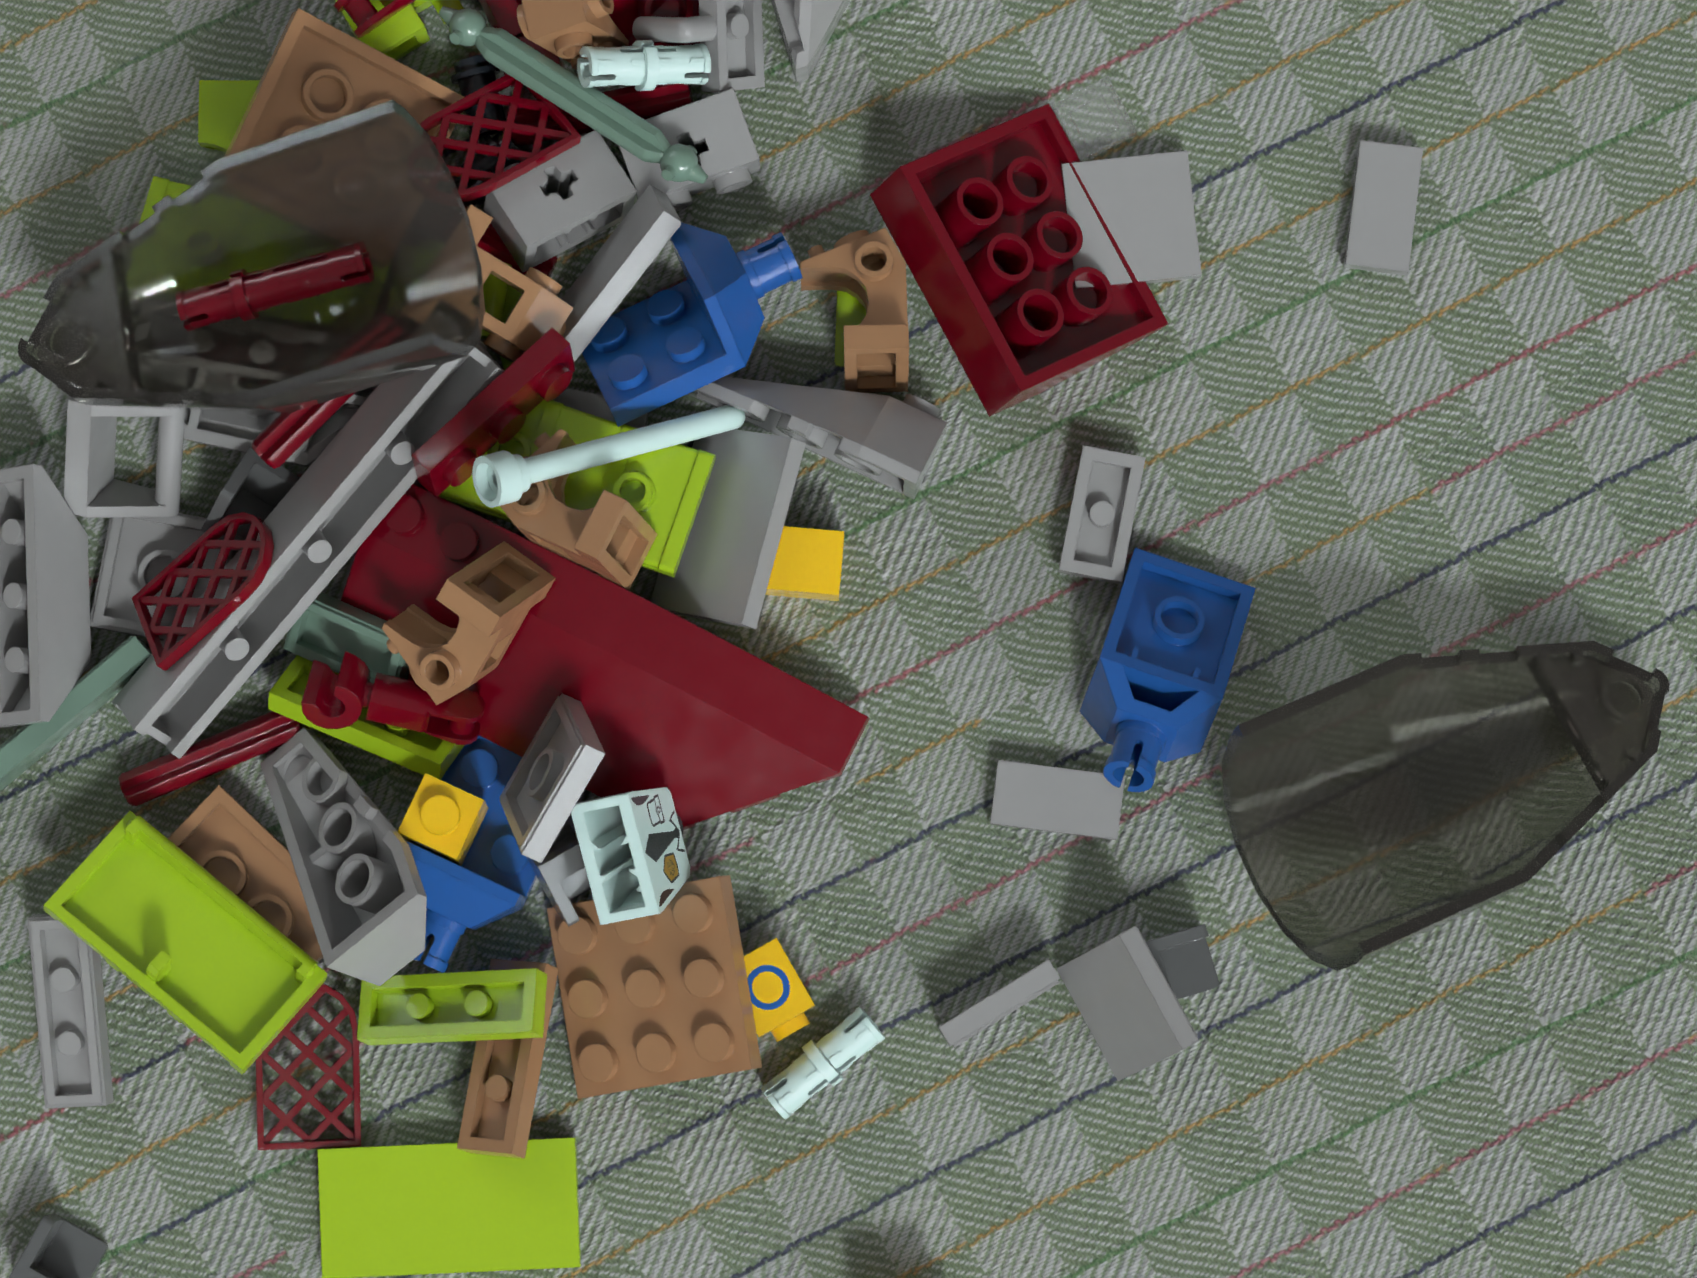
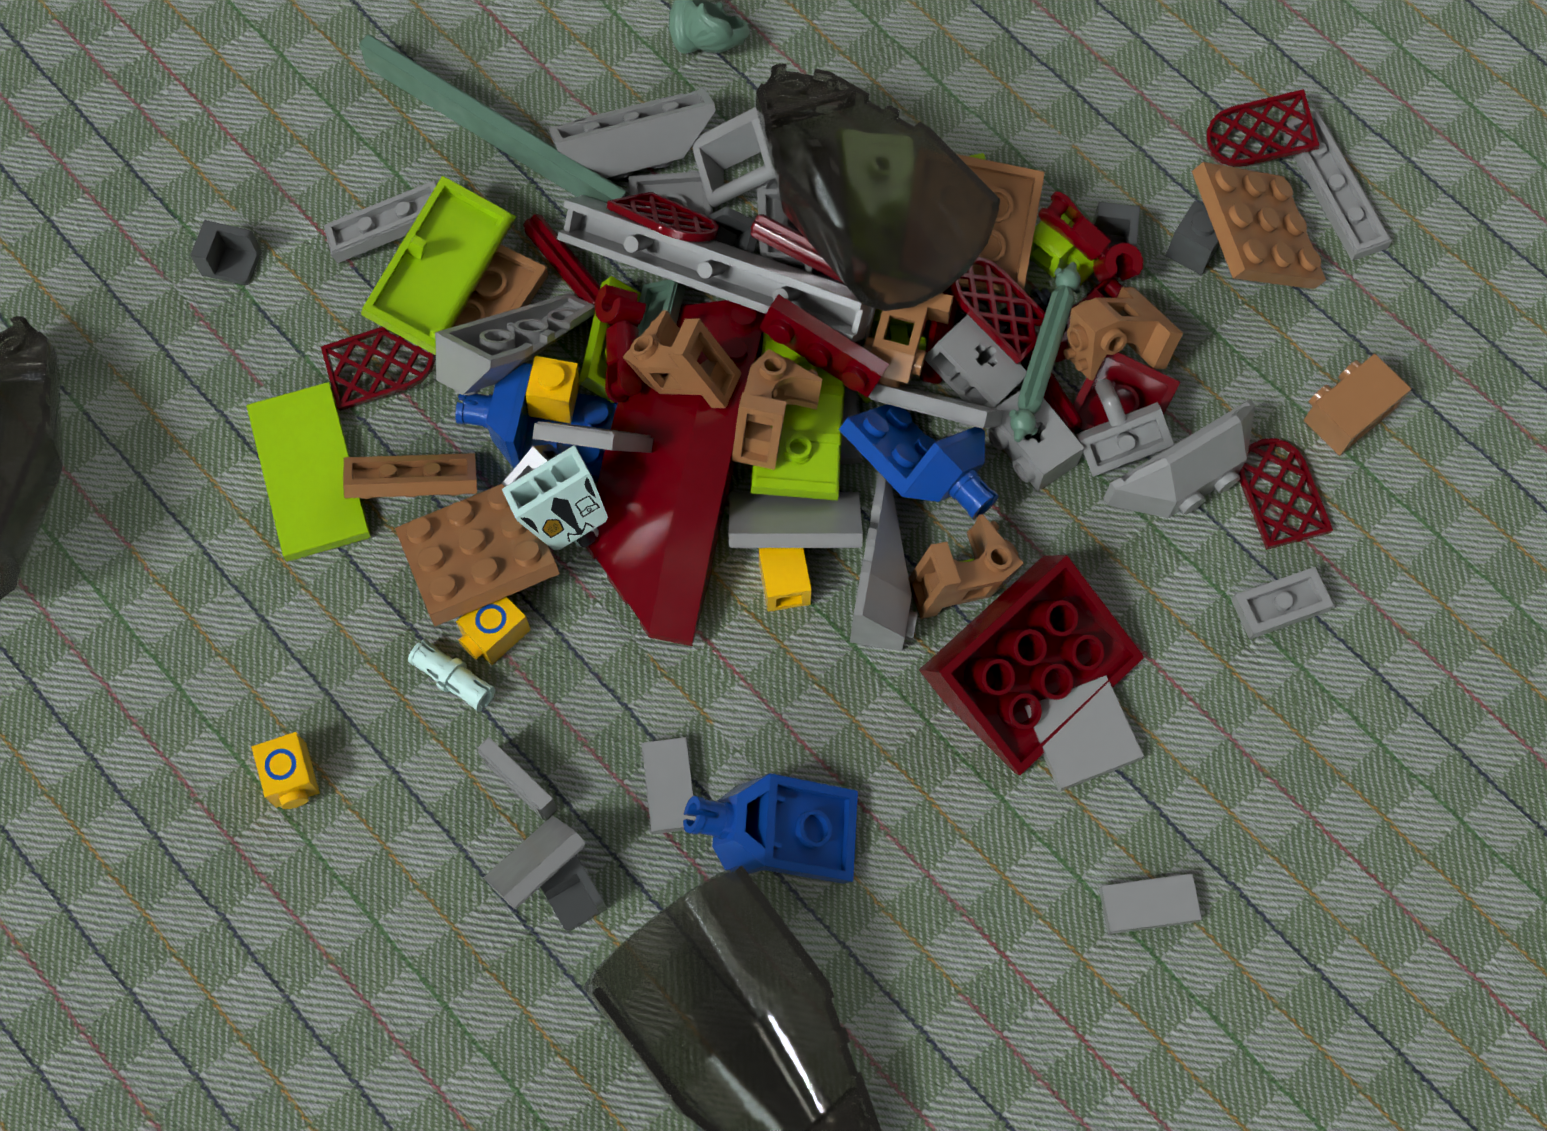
camera: 75 degrees right, 15 degrees down
(289, 282) = (855, 185): dark red pin -> none
(453, 1007) = (435, 432): lime plate -> none
(505, 477) = (779, 344): light aqua piece -> none
(643, 65) = (1079, 386): light aqua pin -> none
(1094, 119) = (1143, 690): clear tile -> none
(1101, 514) = (874, 762): light grey plate -> none

